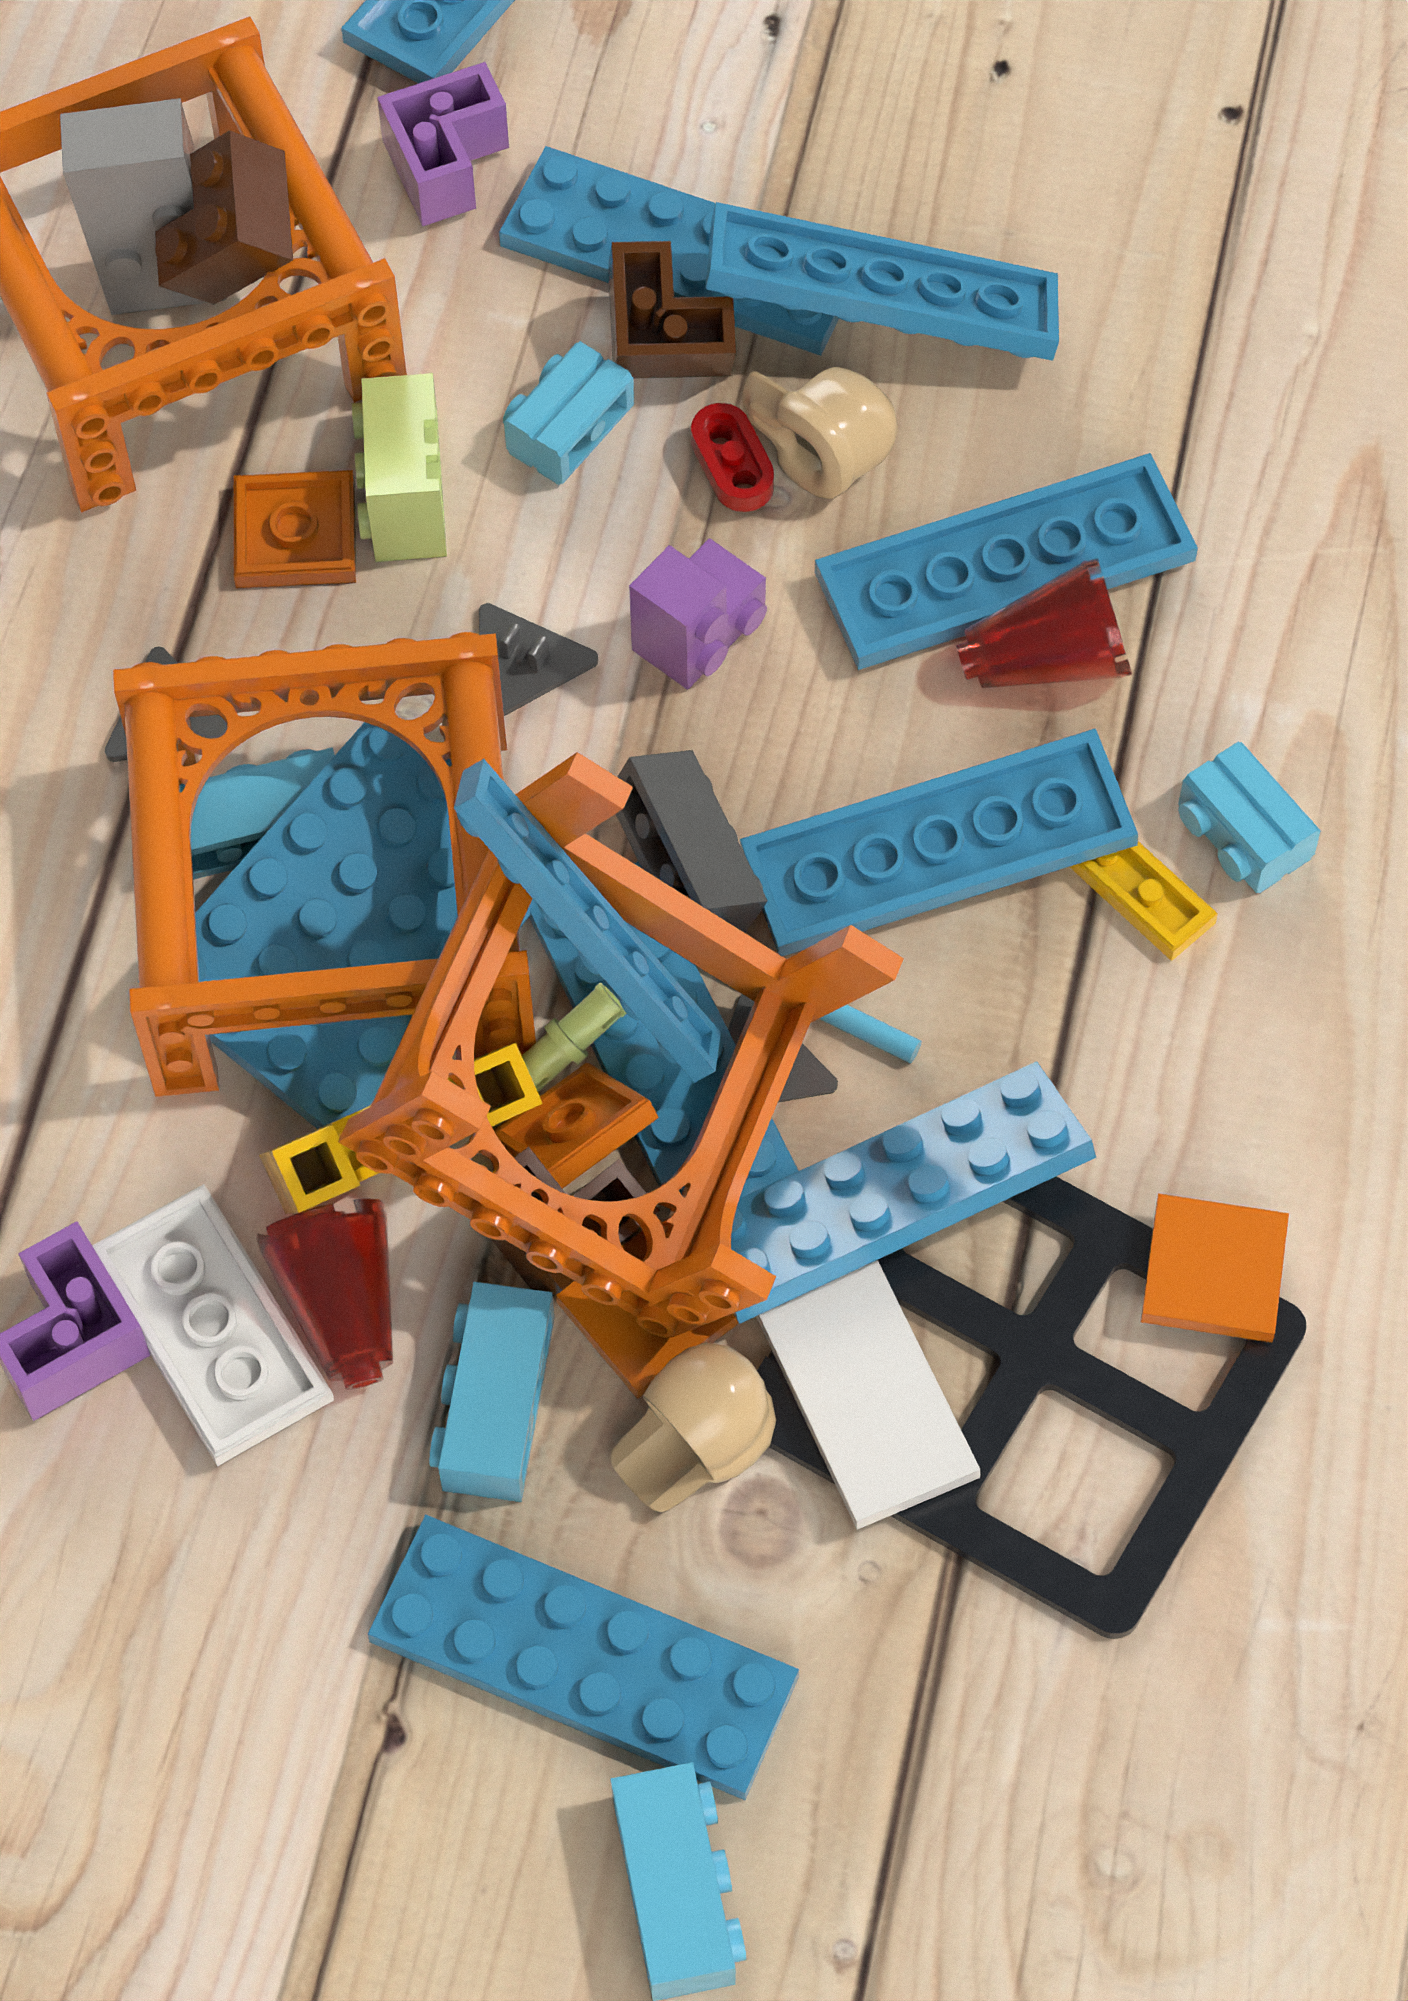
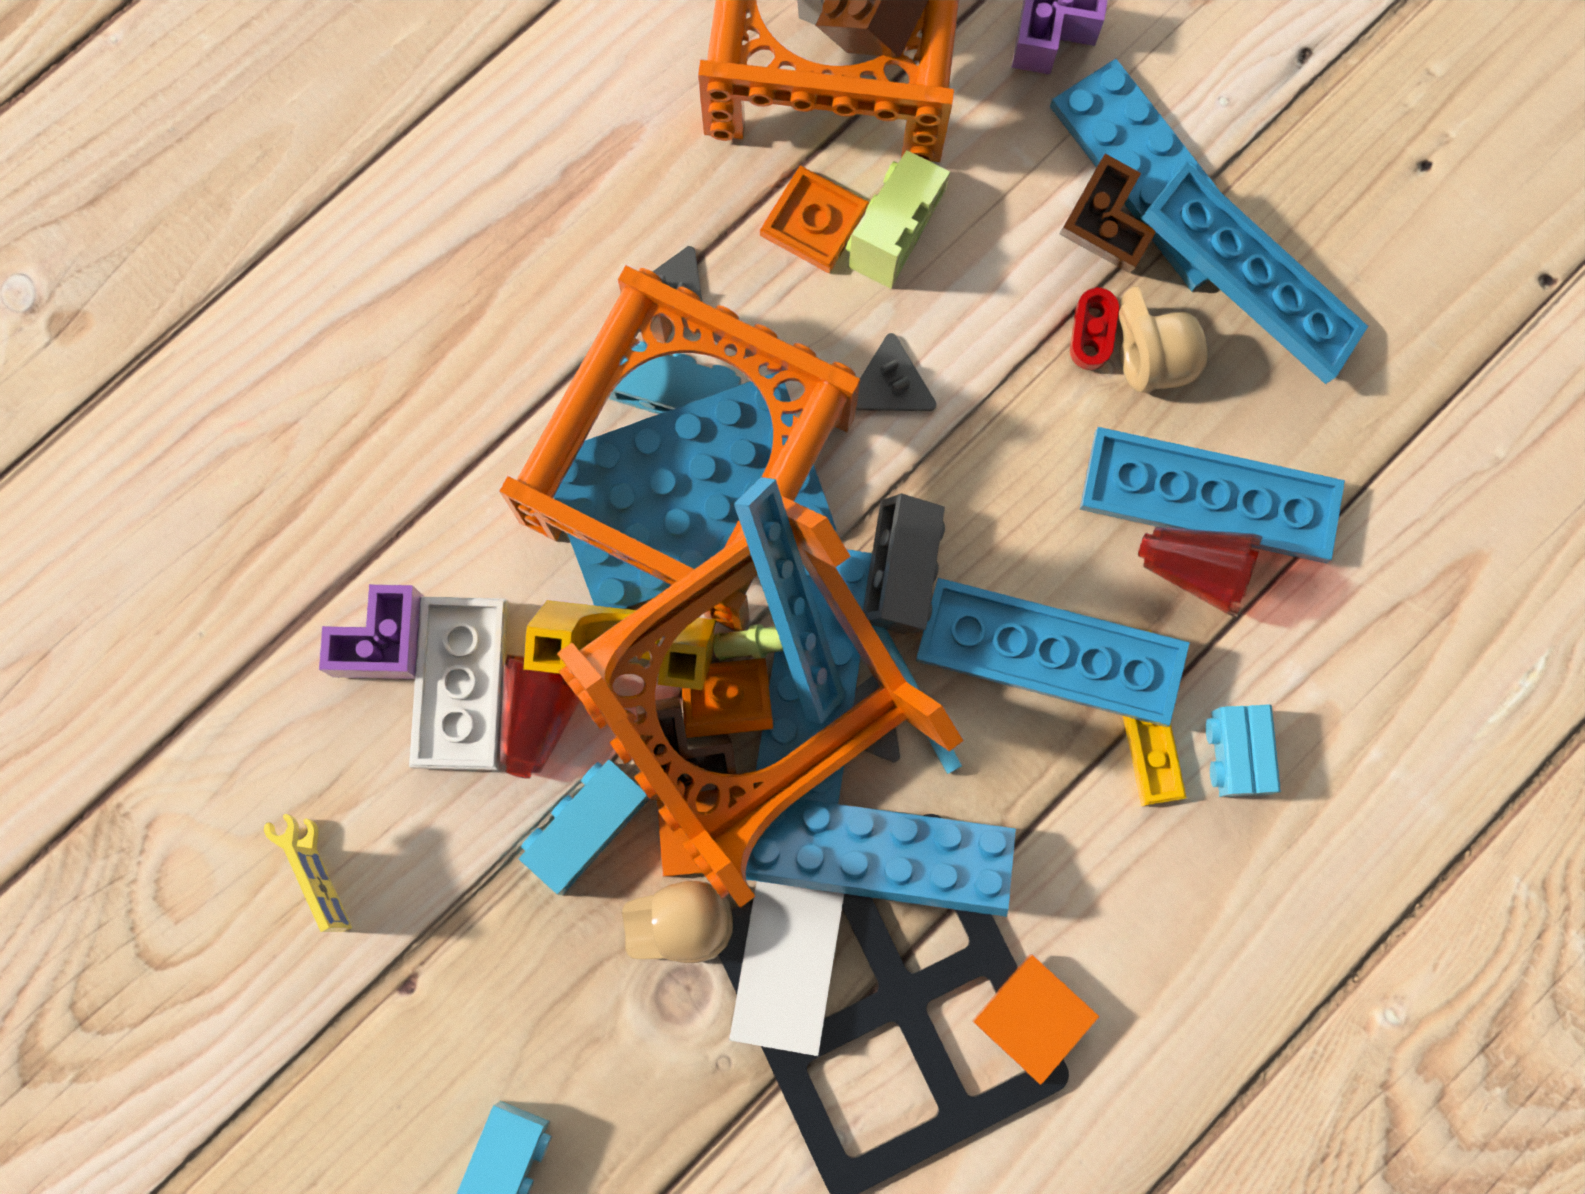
camera: 30 degrees right, 15 degrees up
(176, 1651) = (311, 873): none -> light yellow flag
(567, 412) = (1016, 241): medium azure brick -> none
(584, 1656) = (536, 1012): dark azure plate -> none
(694, 610) = (1007, 416): medium lavender brick -> none

